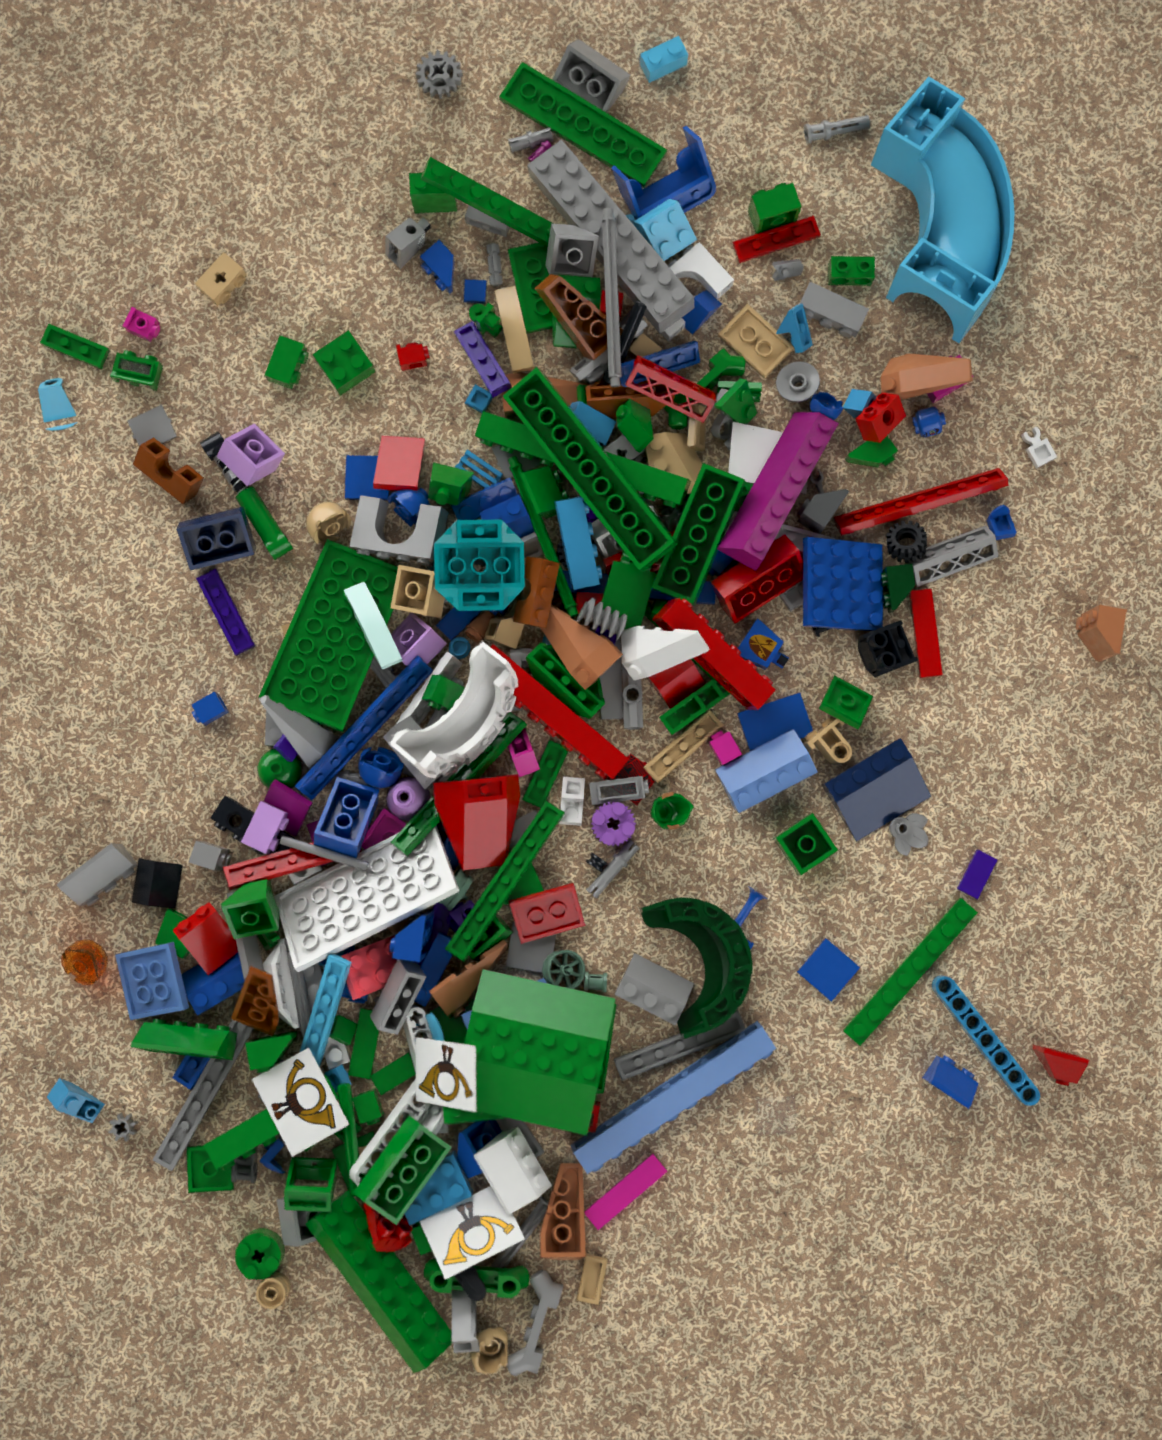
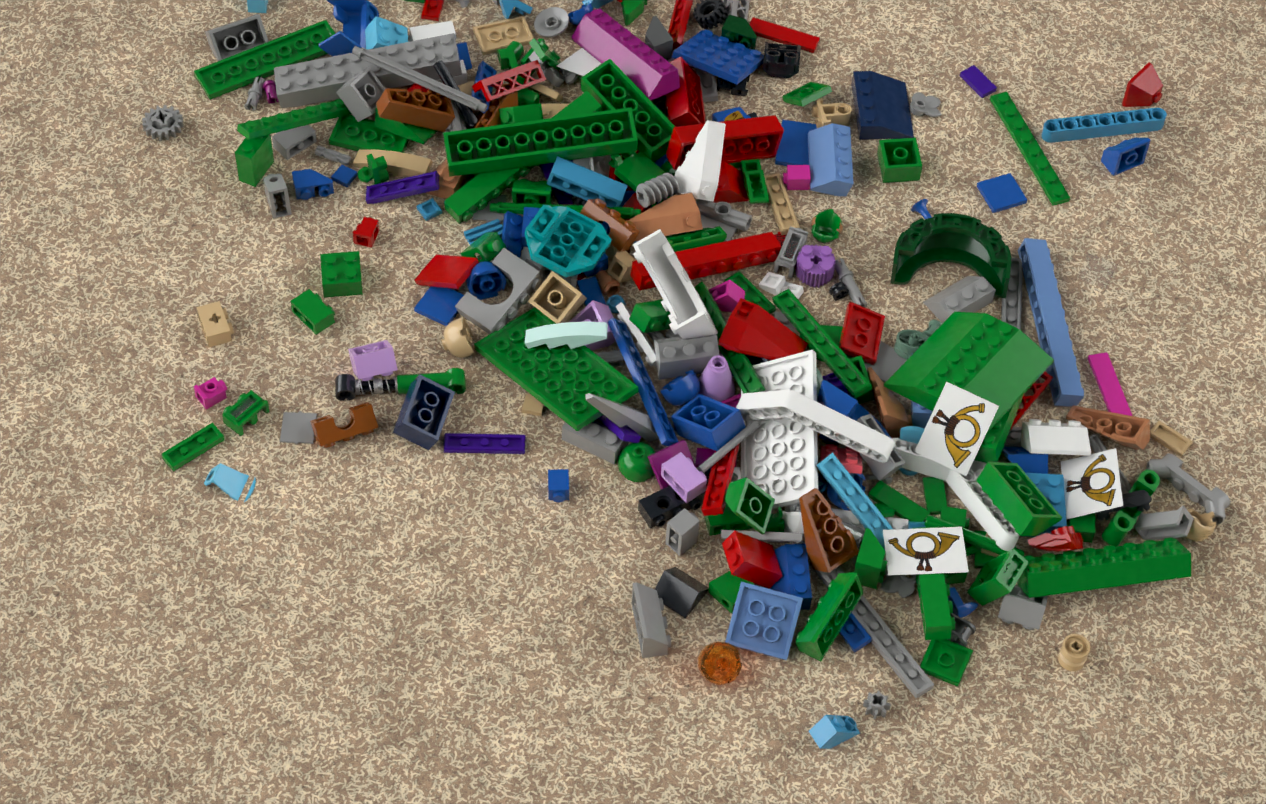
camera: 65 degrees left, 30 degrees down
(255, 1266) = (1038, 649): green brick -> none
(373, 930) = (818, 418): none -> white beam

